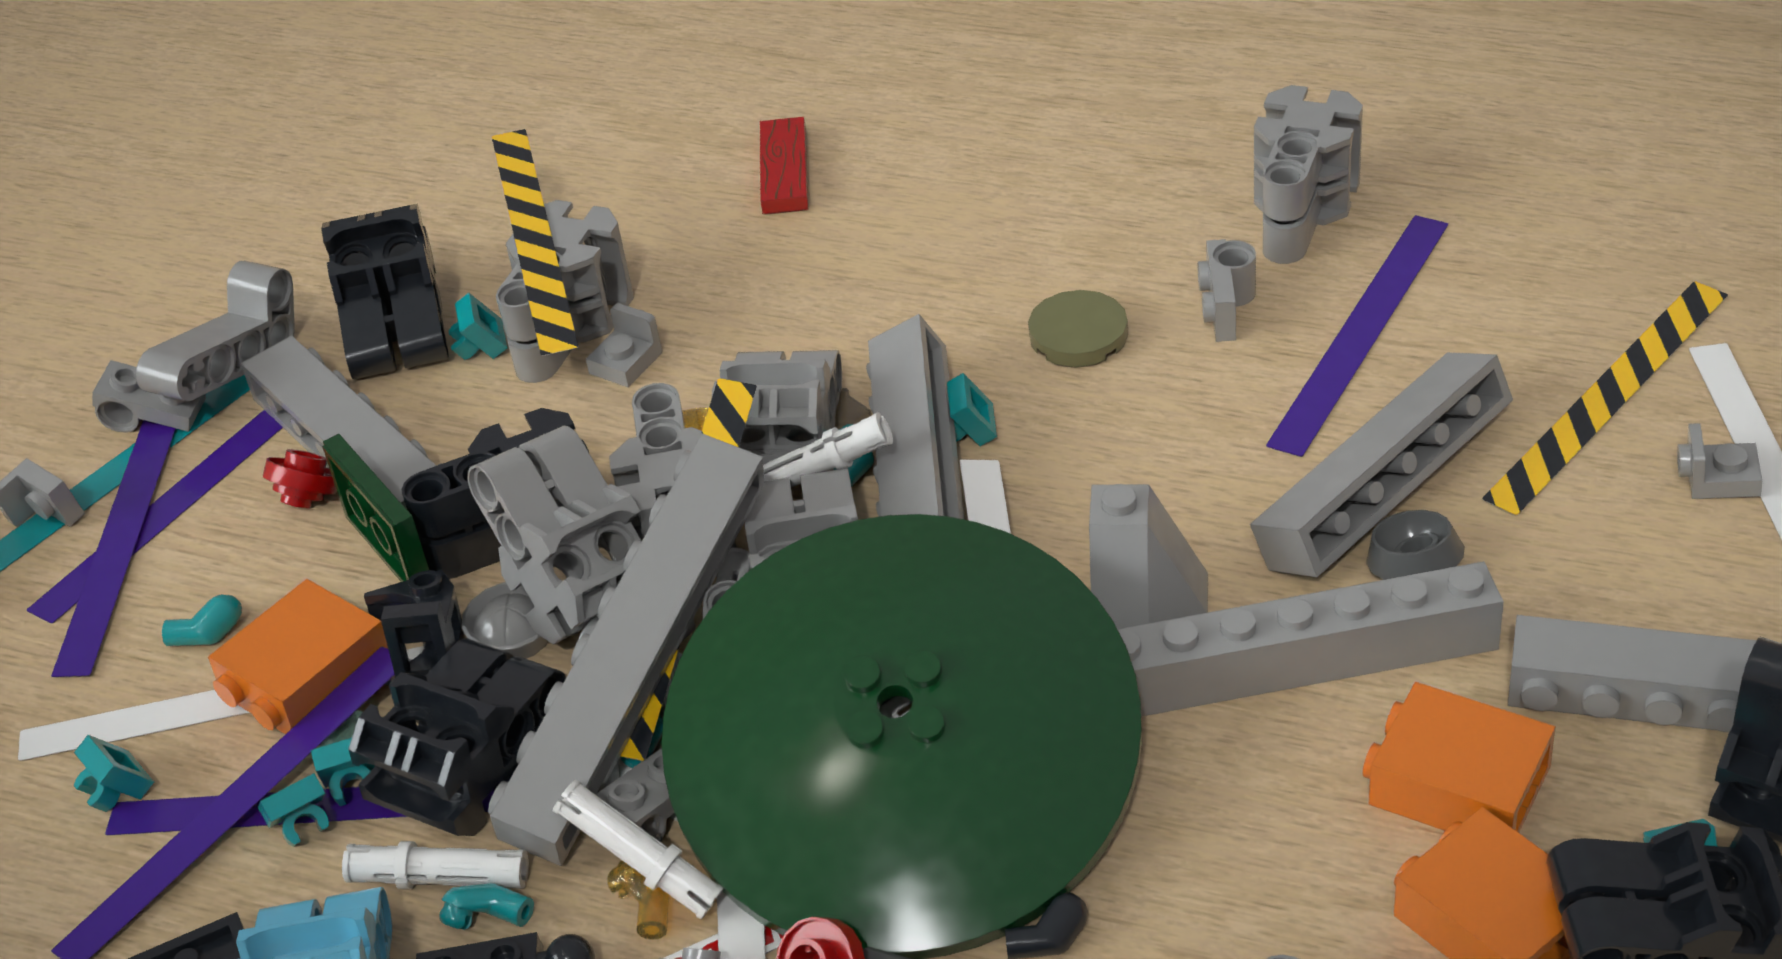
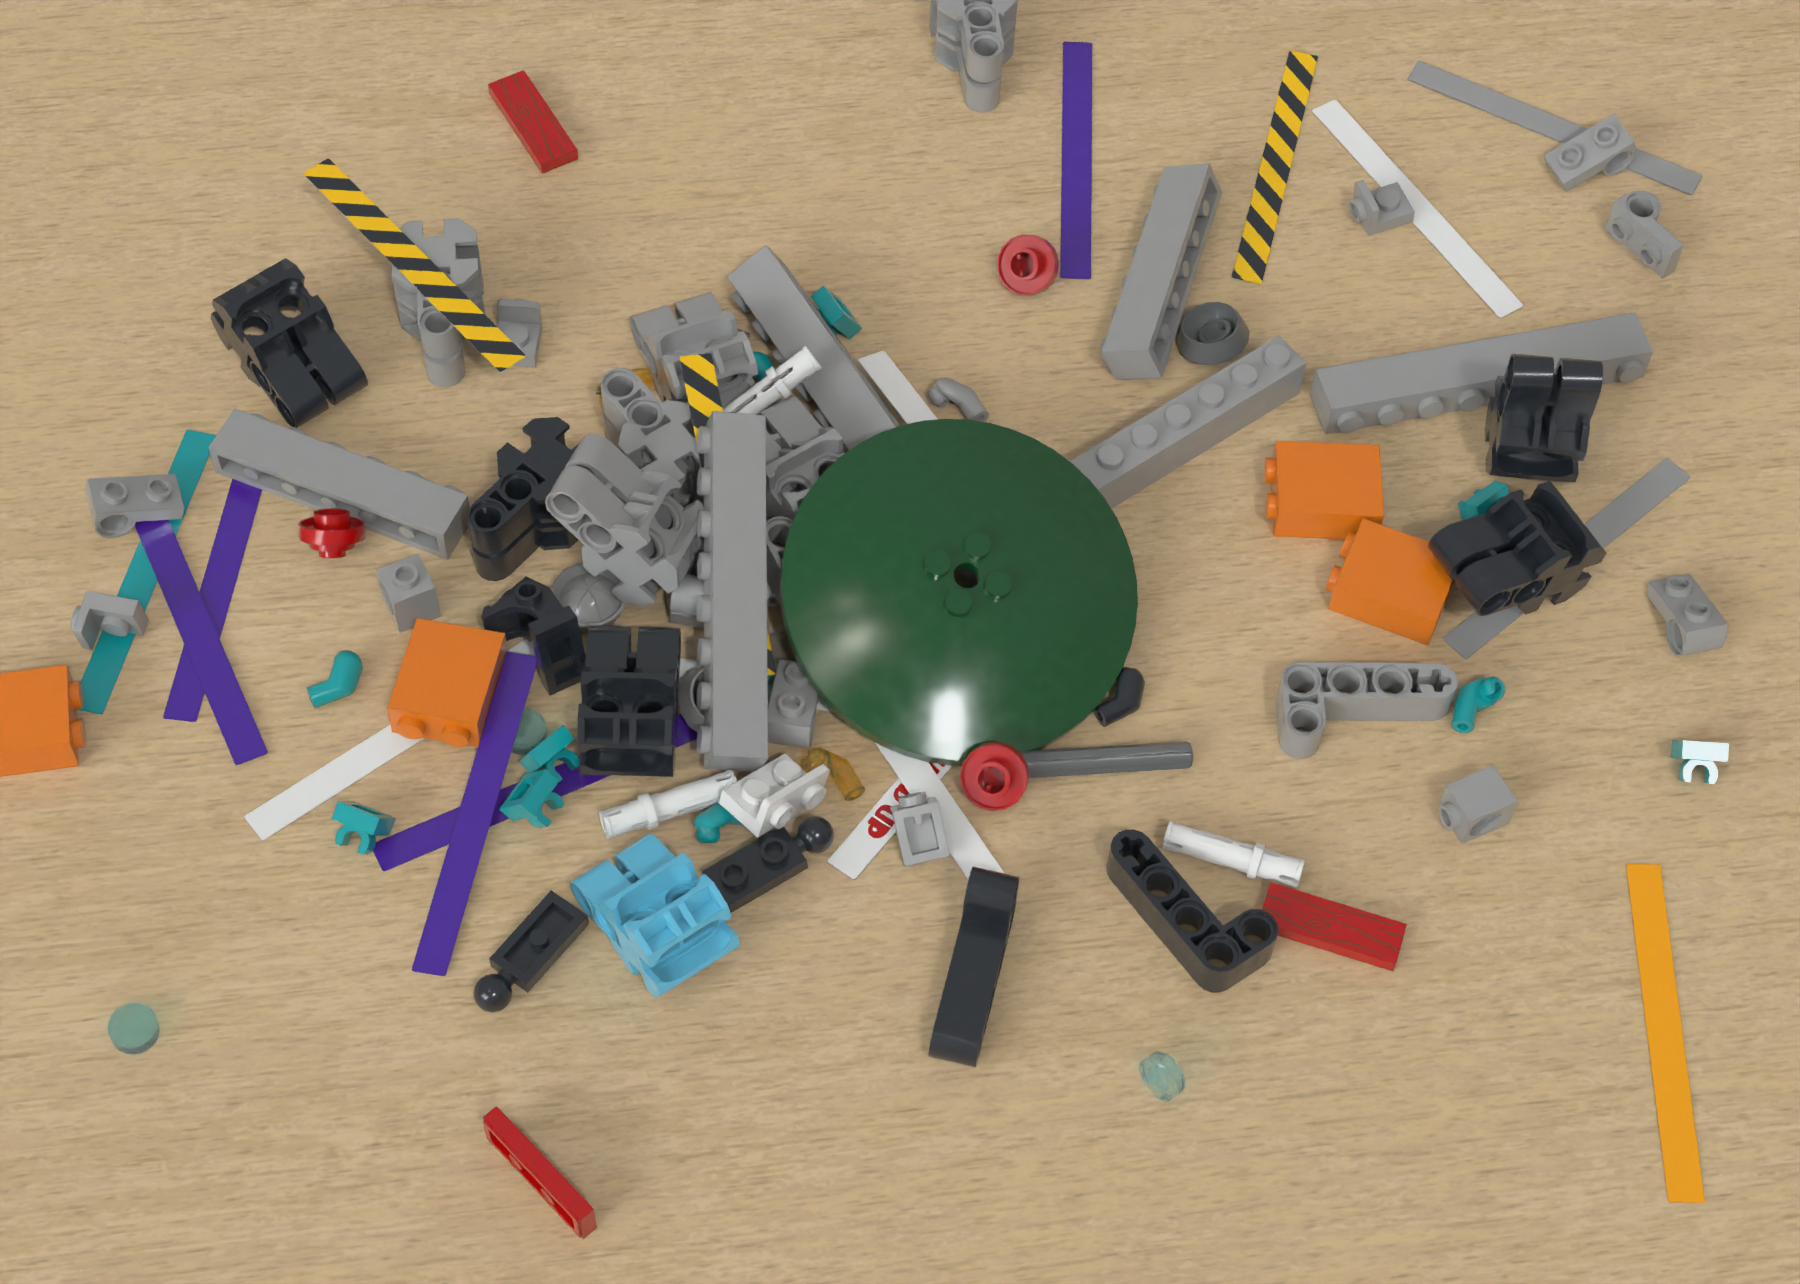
camera: 35 degrees left, 15 degrees up
(212, 353) = (178, 427): light grey beam -> none
(329, 554) = (408, 592): none -> light grey brick
(375, 510) = (444, 548): dark green tile -> none
(476, 329) = (382, 352): teal tile -> none
(550, 894) = (774, 794): none -> white bracket
(638, 849) = (844, 746): white pin -> none
(1064, 533) = (959, 394): none -> light grey arm
(1078, 328) = (868, 214): olive tile -> none
(1141, 559) = (1045, 405): light grey slope -> none
(1223, 415) = (1027, 264): none -> plate
(1231, 282) = (962, 141): light grey plate -> none

